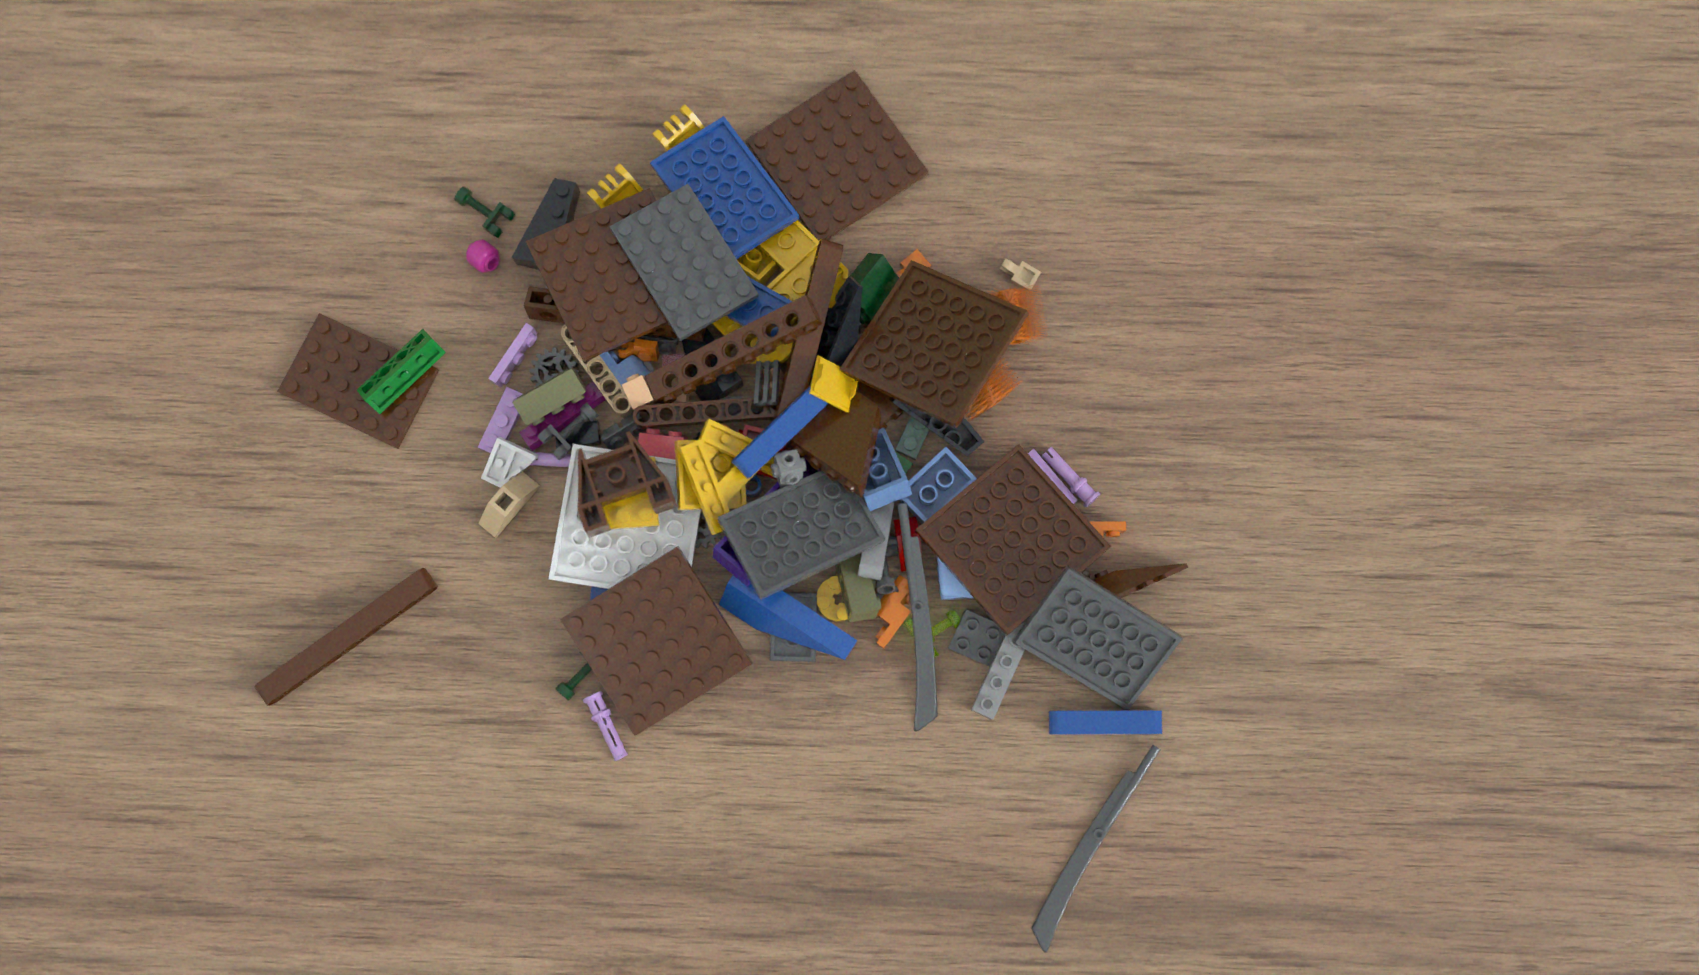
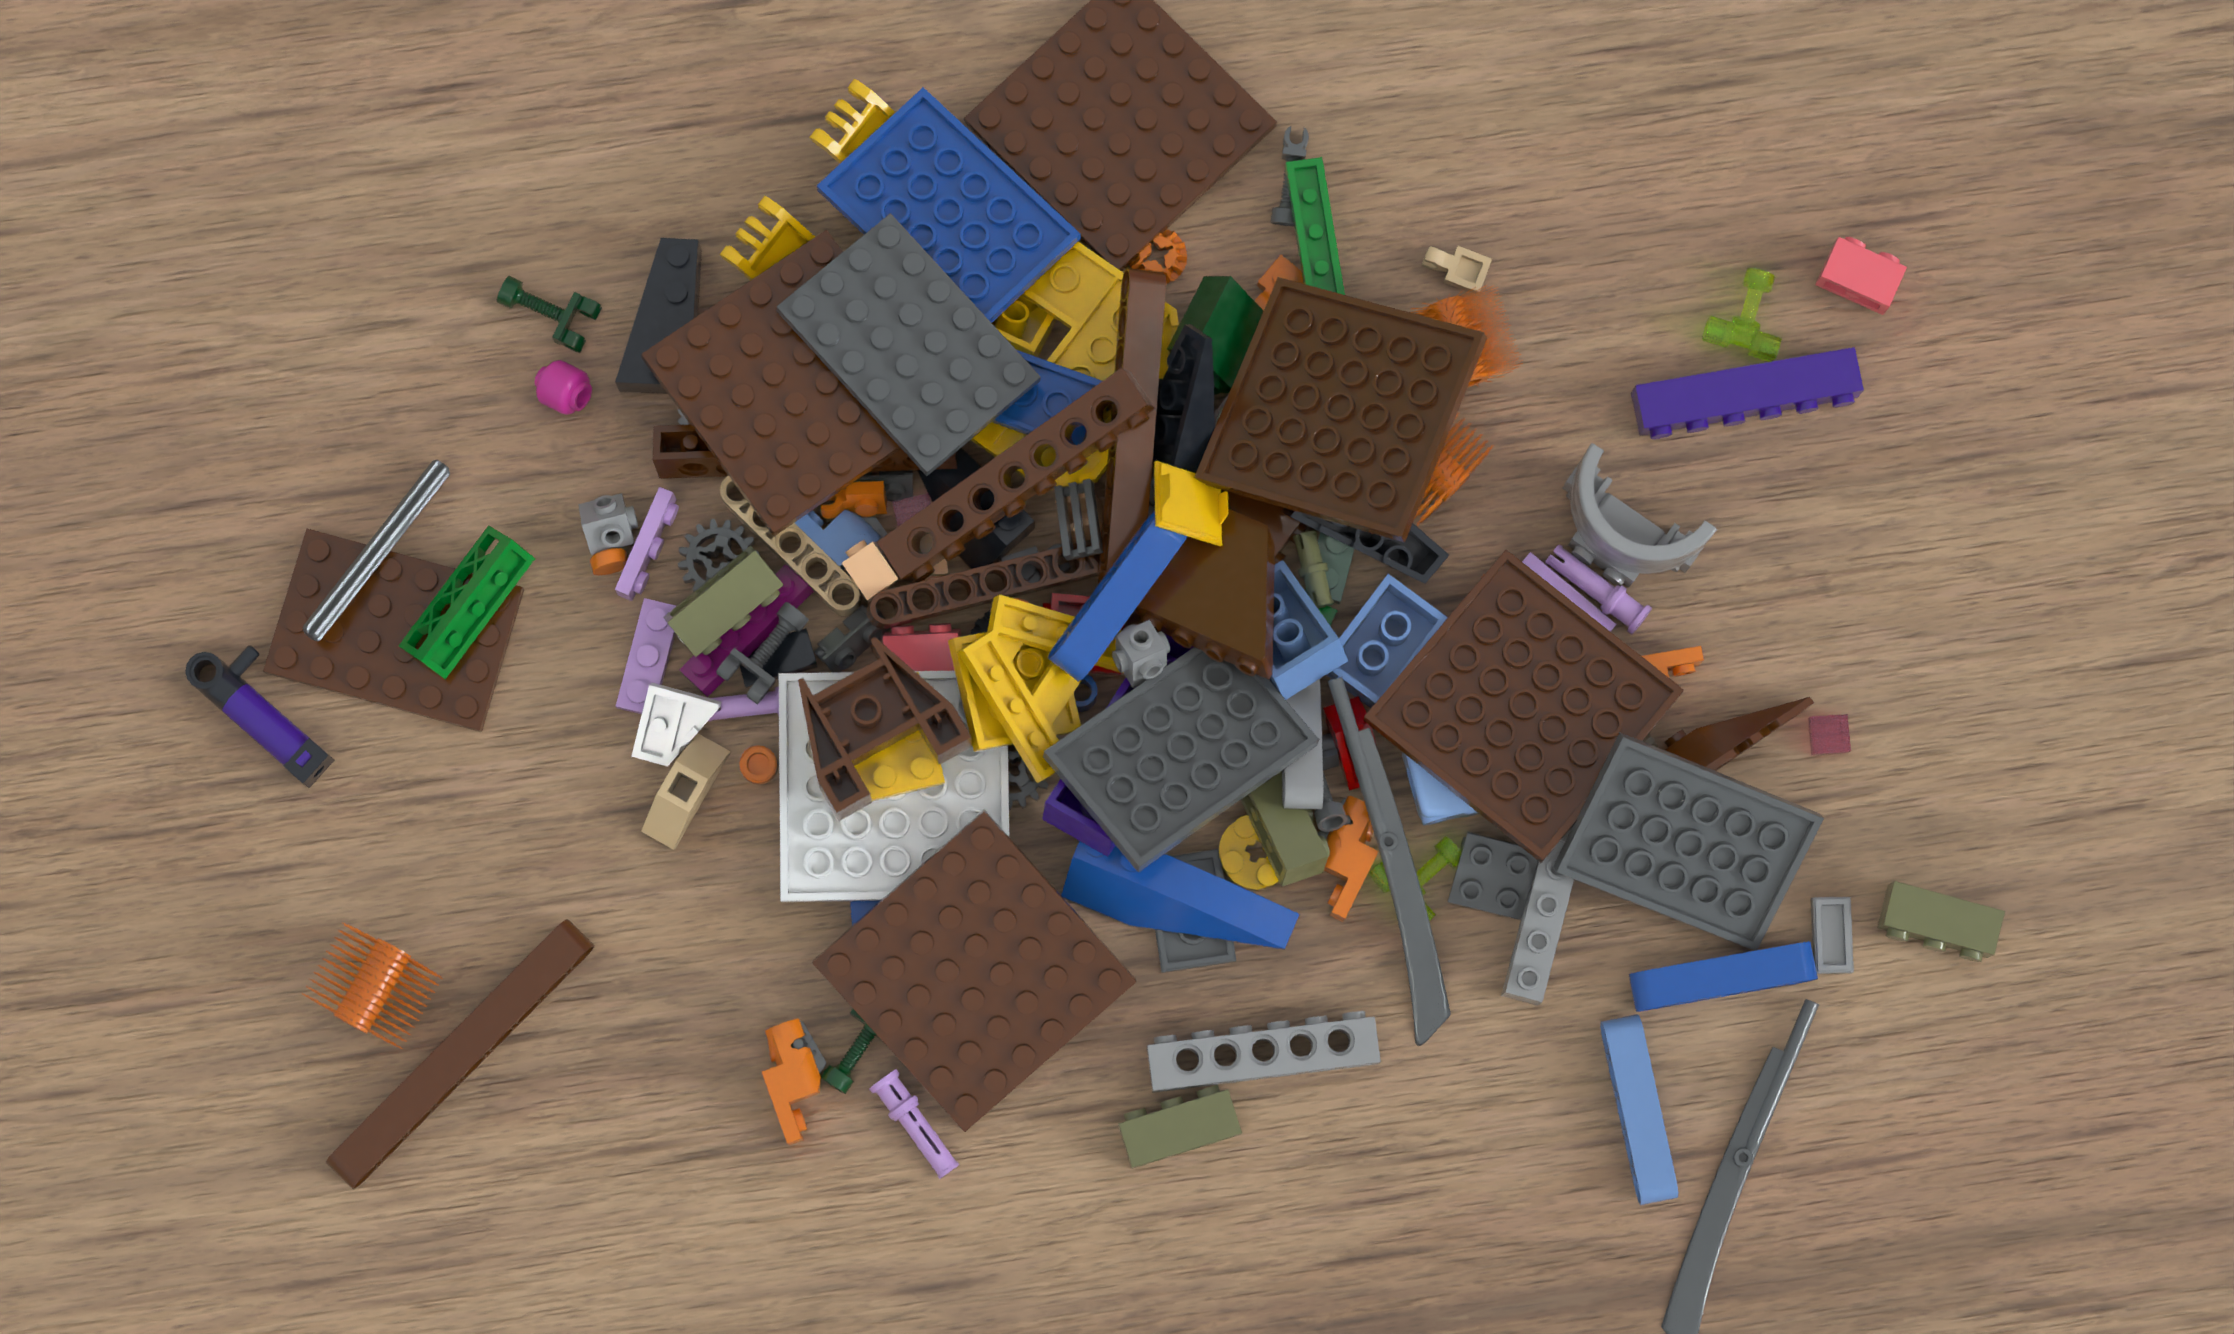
camera: 15 degrees left, 0 degrees up
(286, 442) = (258, 716): none -> piece
(298, 587) = (372, 984): none -> orange piece
(354, 332) = (376, 550): none -> axle
(489, 361) = (608, 561): none -> orange tile
(492, 339) = (607, 523): none -> light grey brick
(540, 684) = (794, 1075): none -> orange plate
(554, 495) = (758, 764): none -> orange tile
(761, 722) = (1361, 1051): none -> light grey brick
(762, 755) = (1179, 1126): none -> olive brick
(854, 241) = (1174, 260): none -> orange gear
(902, 436) = (1313, 569): none -> olive pin
(934, 191) = (1282, 214): none -> dark grey bar
(939, 233) = (1314, 224): none -> green fence
(1040, 794) = (1639, 1109): none -> medium blue beam
(1089, 449) = (1620, 537): none -> light grey piece
(1175, 708) = (1832, 935): none -> light grey tile
(1179, 376) = (1747, 392): none -> dark purple brick
(1183, 338) = (1744, 329): none -> clear neon green bar
(1194, 588) = (1829, 734): none -> clear pink tile
(1242, 712) = (1940, 921): none -> olive brick
(1259, 317) = (1861, 274): none -> coral brick

